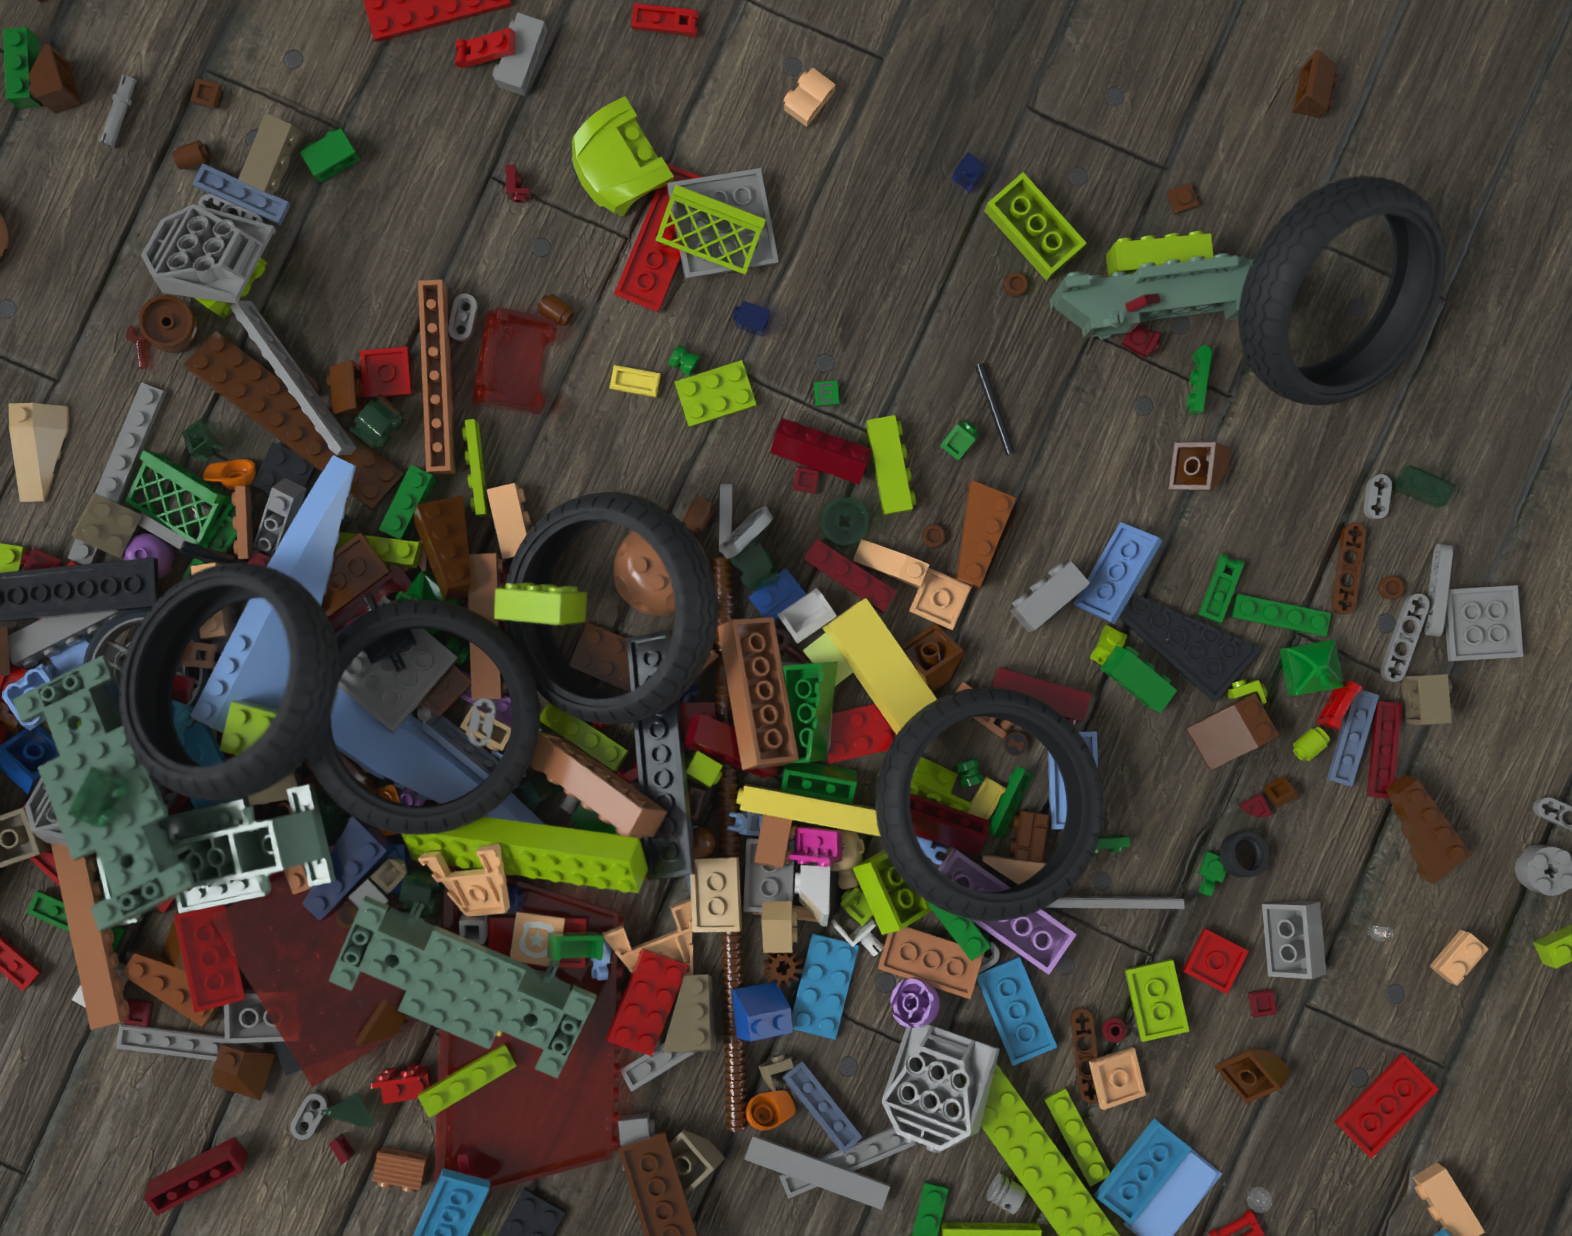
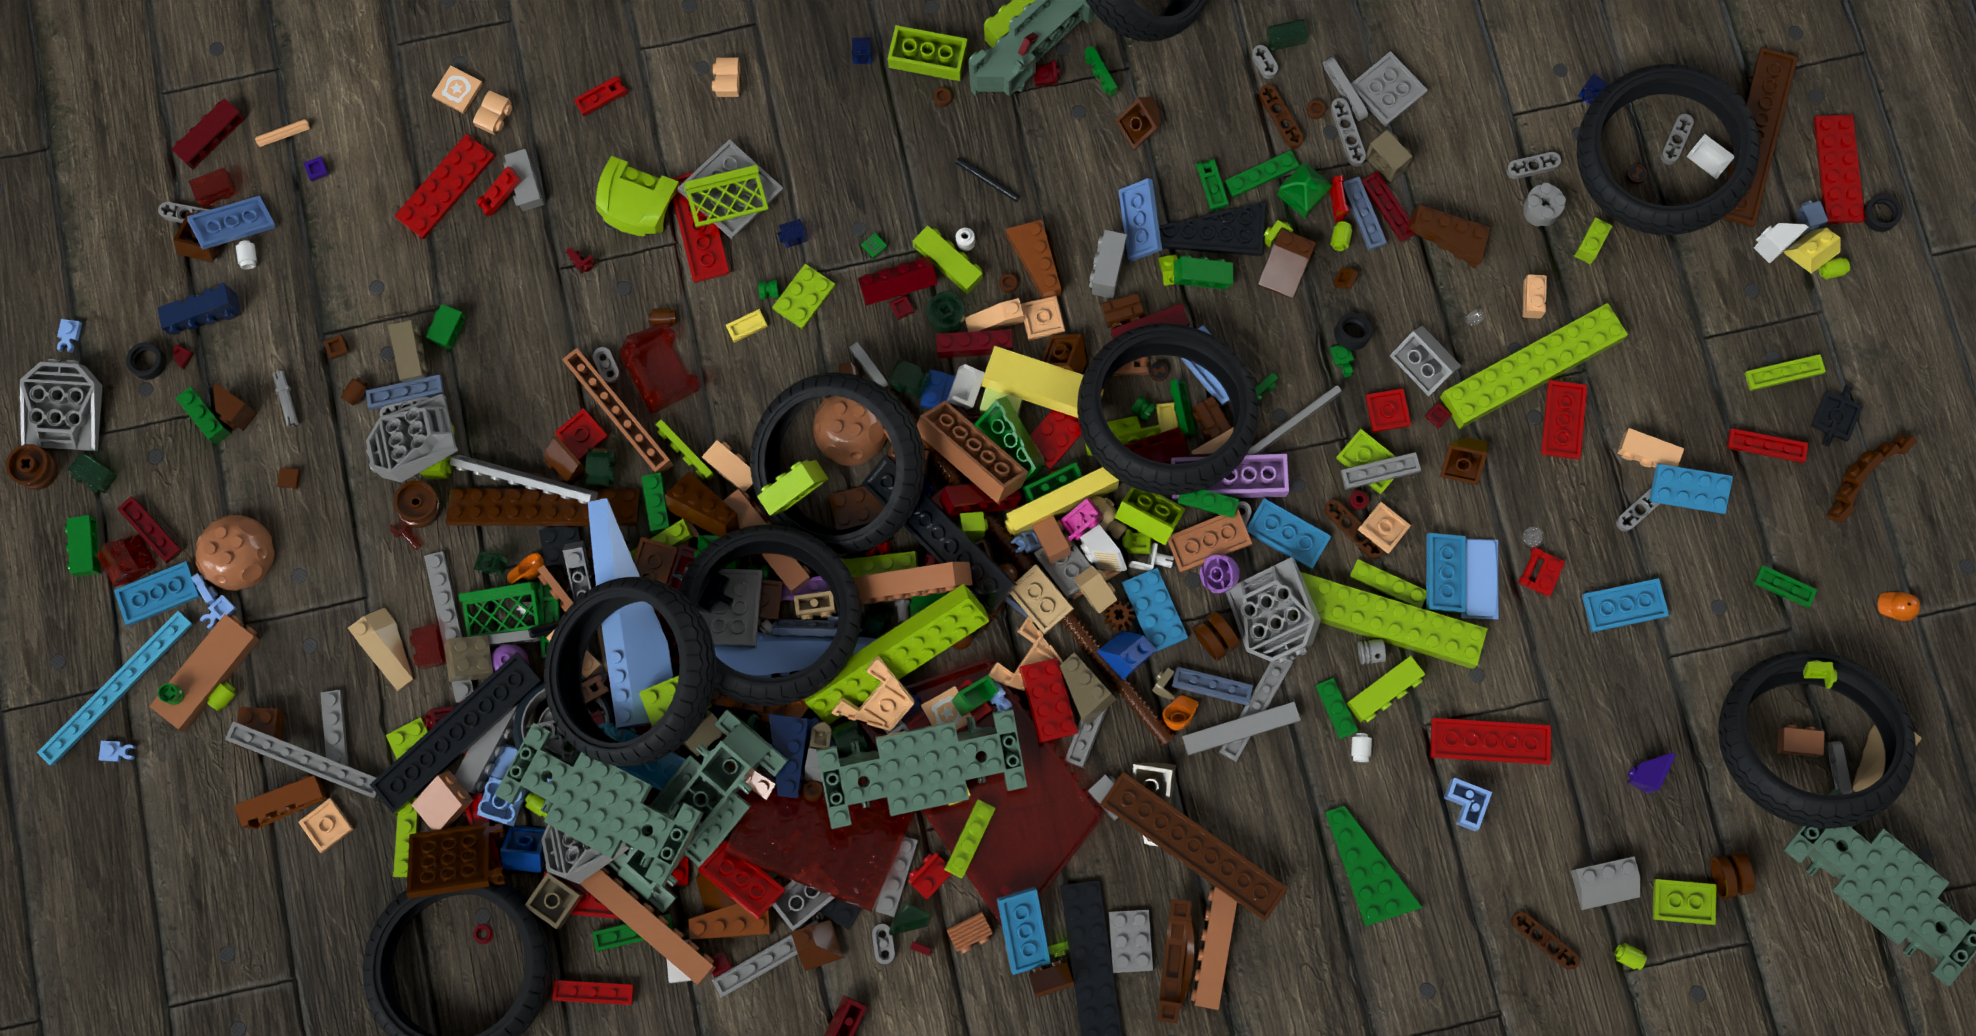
camera: 30 degrees left, 10 degrees down
(64, 198) = (288, 478): none -> reddish brown tile
(78, 480) = (427, 647): none -> clear red brick
(98, 797) = (599, 802): clear green brick -> none
(371, 1061) = (896, 879): none -> light grey plate
(382, 1024) = (887, 835): reddish brown slope -> none
(475, 720) = (805, 586): light grey beam -> none
(746, 532) = (888, 363): light grey beam -> none
(862, 1064) = (1215, 636): none -> reddish brown wheel
(920, 465) = (965, 239): none -> white brick
(960, 439) = (979, 212): green bracket -> none
(1026, 654) = (1122, 310): none -> reddish brown brick
(1158, 1021) = (1380, 471): none -> light grey plate
(1256, 806) = (1339, 299): dark red tile -> none
(1401, 1029) = (1533, 366): none -> lime brick

